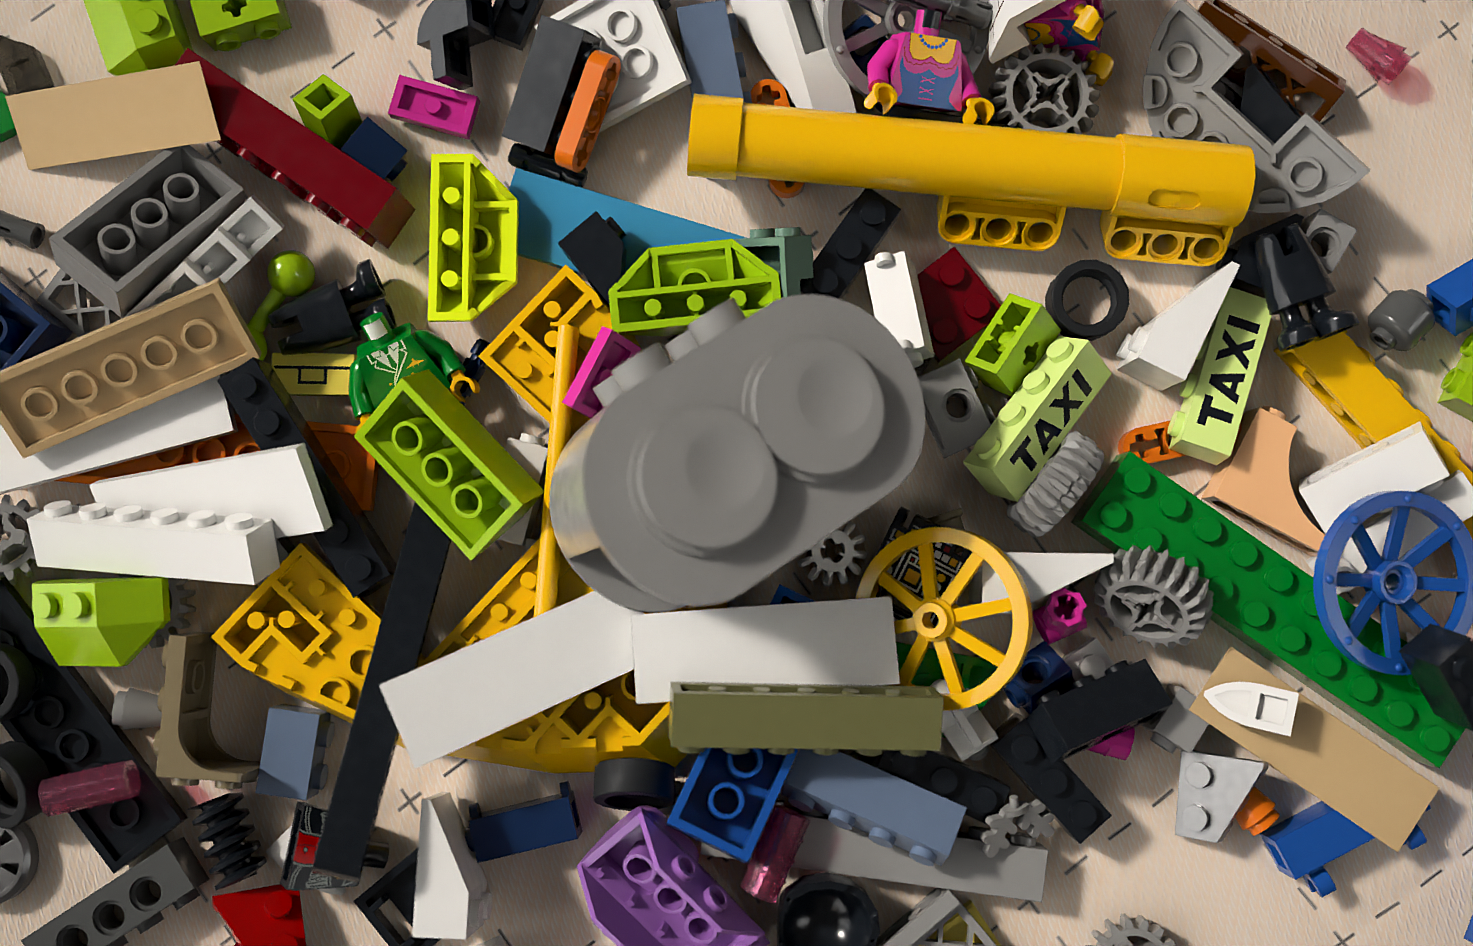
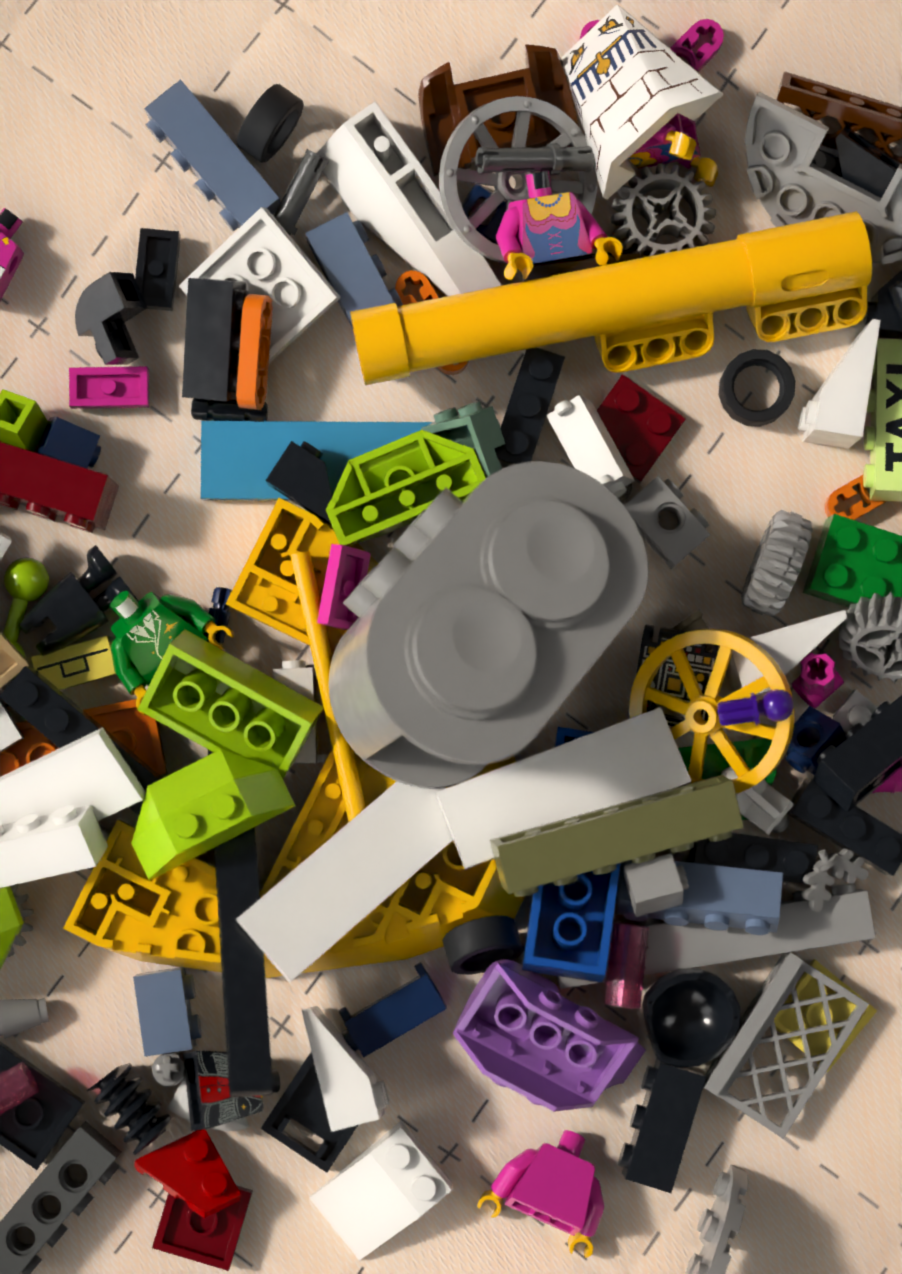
camera: 25 degrees left, 0 degrees up
(185, 737) = (65, 1029): dark tan bracket -> none
(276, 813) = (168, 1070): none -> light grey axle
(388, 559) = (205, 808): none -> lime wedge
(469, 239) = (183, 500): neon yellow wedge -> none
(829, 781) = (655, 884): none -> light grey brick
(846, 556) = (594, 696): white gear -> none
(1012, 344) = (702, 449): lime brick -> none
(1012, 632) = (775, 705): none -> dark purple axle
(1037, 417) = (743, 508): yellowish green brick -> none

